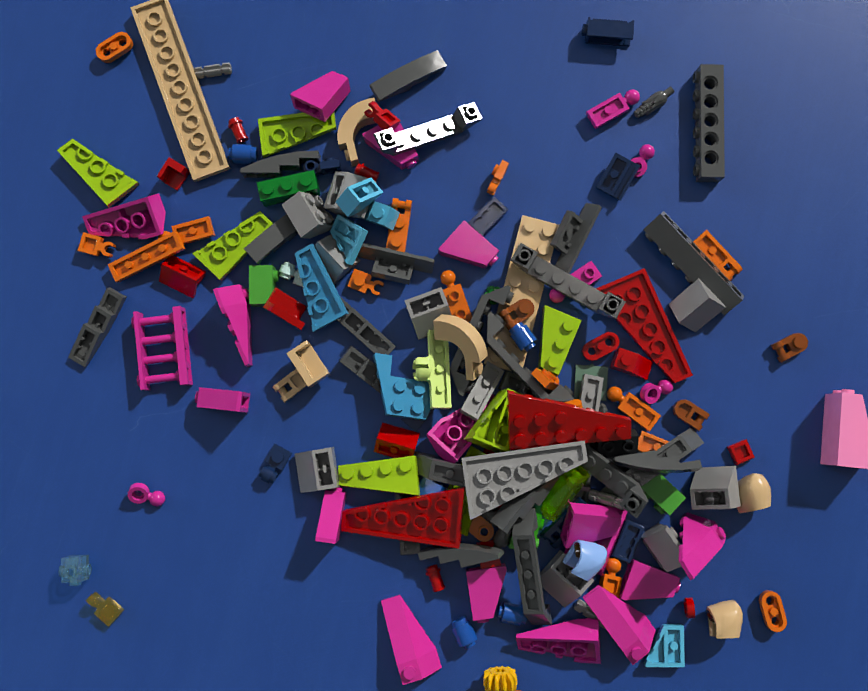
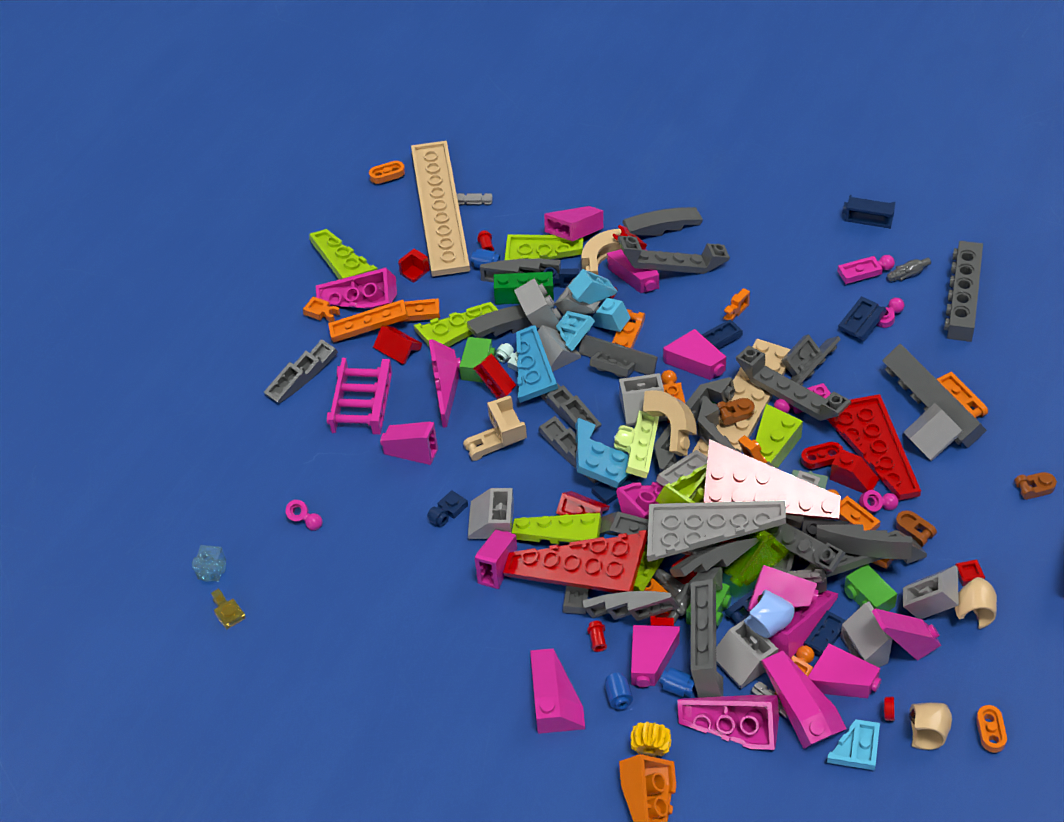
camera: 15 degrees right, 35 degrees down
(362, 282) = (579, 372): orange plate -> none
(523, 337) = (737, 427): blue brick -> none

